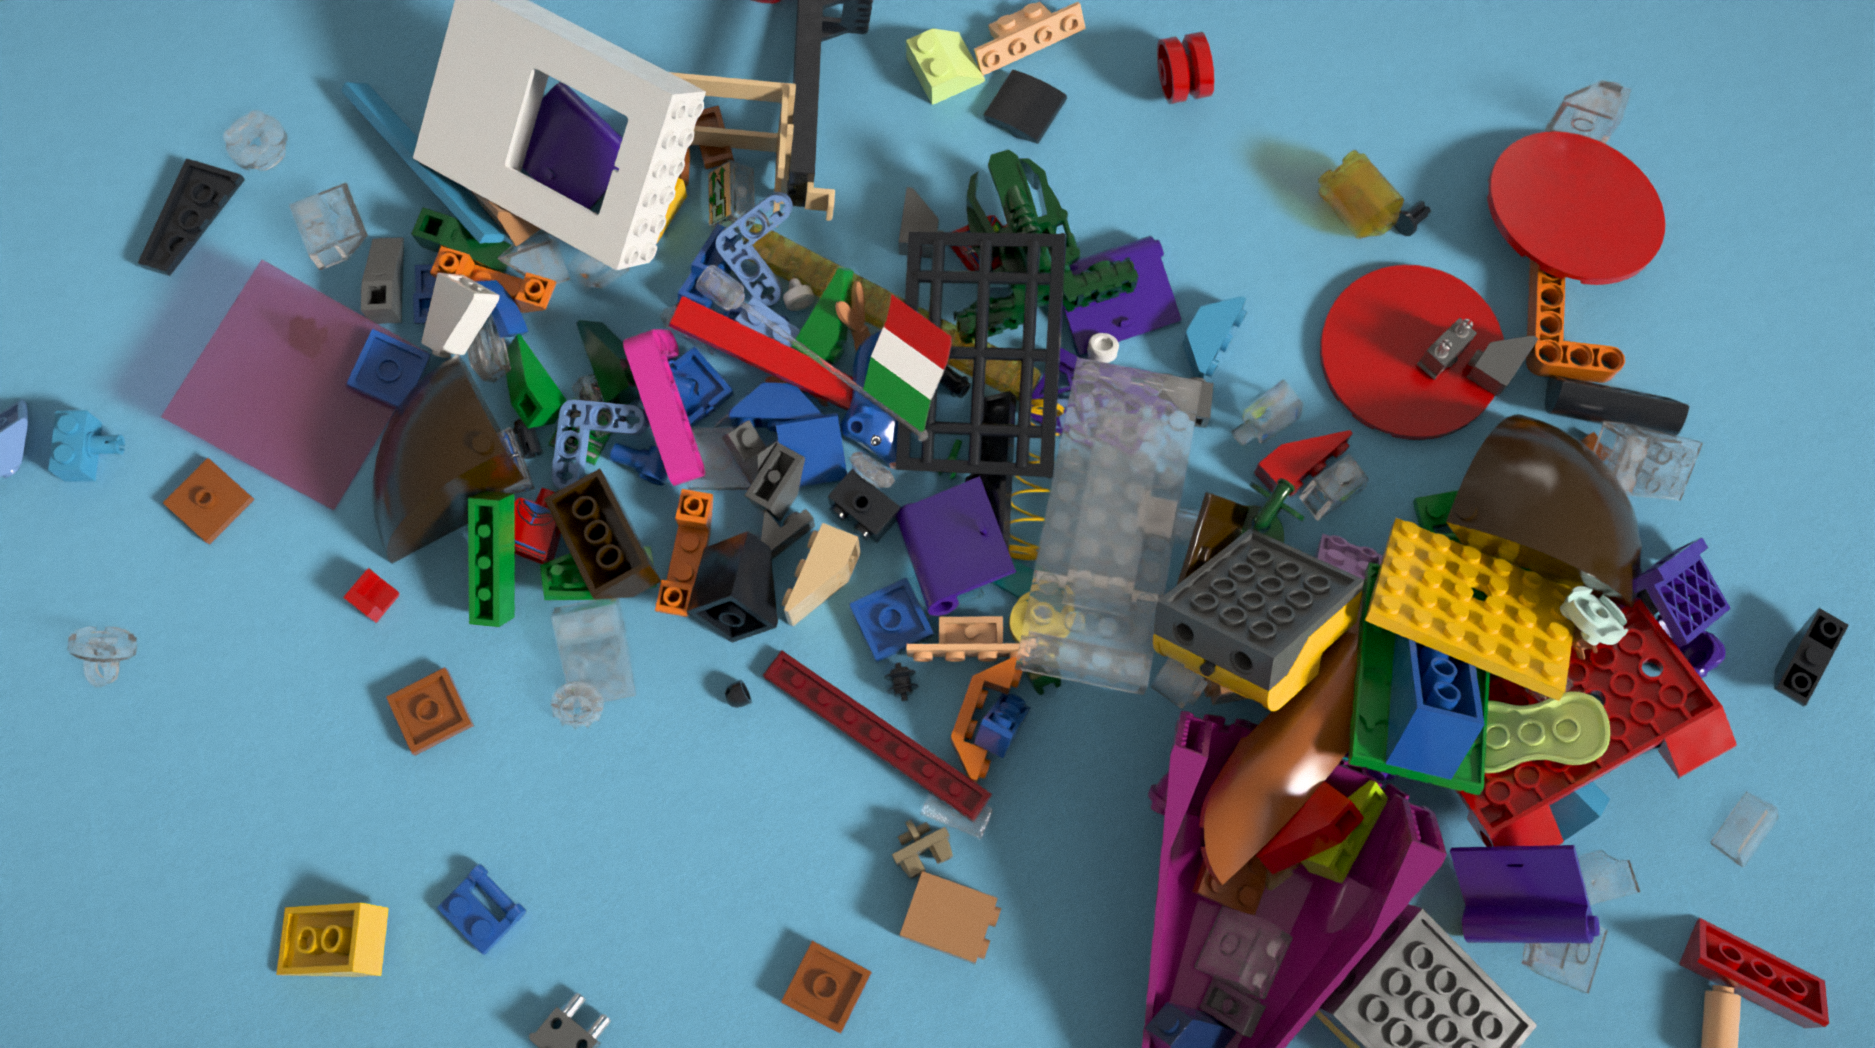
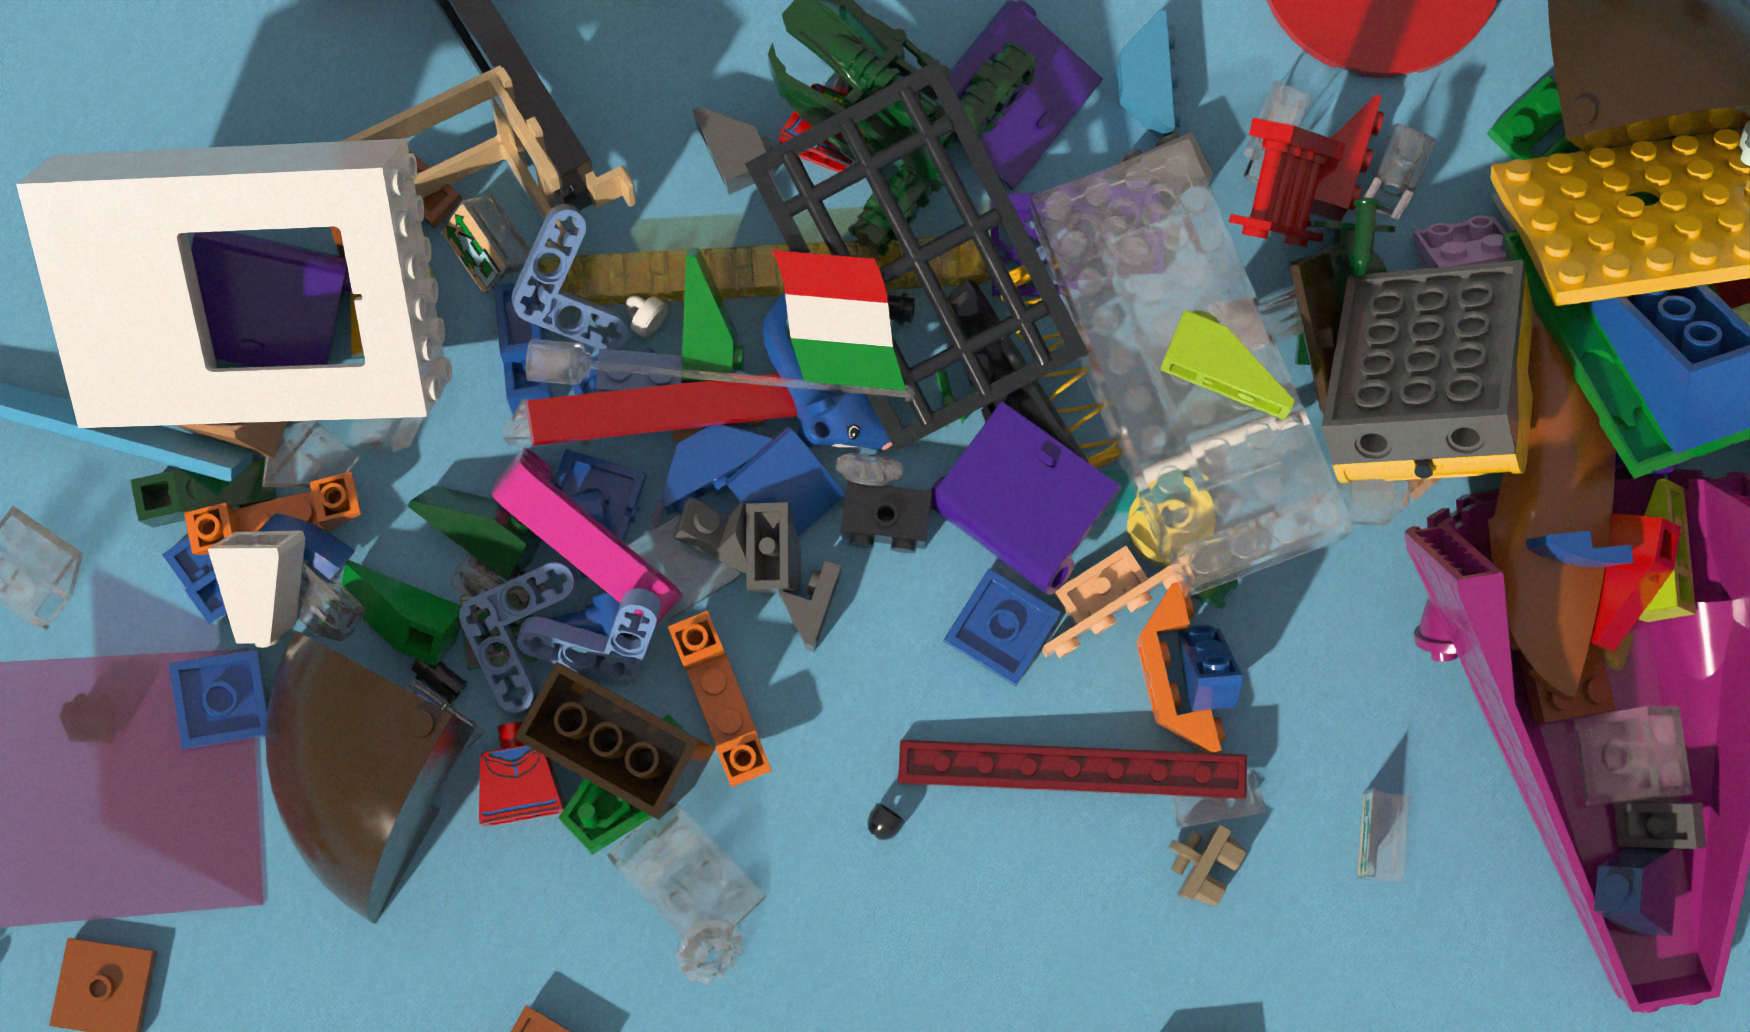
camera: 30 degrees left, 5 degrees up
(372, 595) = (381, 976): red panel -> none
(383, 281) = (137, 595): dark grey slope -> none
(491, 558) = (501, 846): green brick -> none
(637, 485) = (621, 655): none -> medium blue beam
(735, 588) = (806, 701): black slope -> none
(823, 572) = (895, 606): tan slope -> none
(854, 317) = (734, 302): nougat piece -> none
(901, 681) = (1060, 691): black wheel -> none
(950, 918) = (1288, 922): medium nougat brick -> none
(1049, 904) = (1383, 836): none -> clear panel
(1102, 347) = (1038, 166): white tile -> none
(1116, 518) = (1218, 361): none -> lime slope
(1260, 419) = (1287, 181): none -> red fence
(1278, 784) = (1577, 550): none -> blue slope

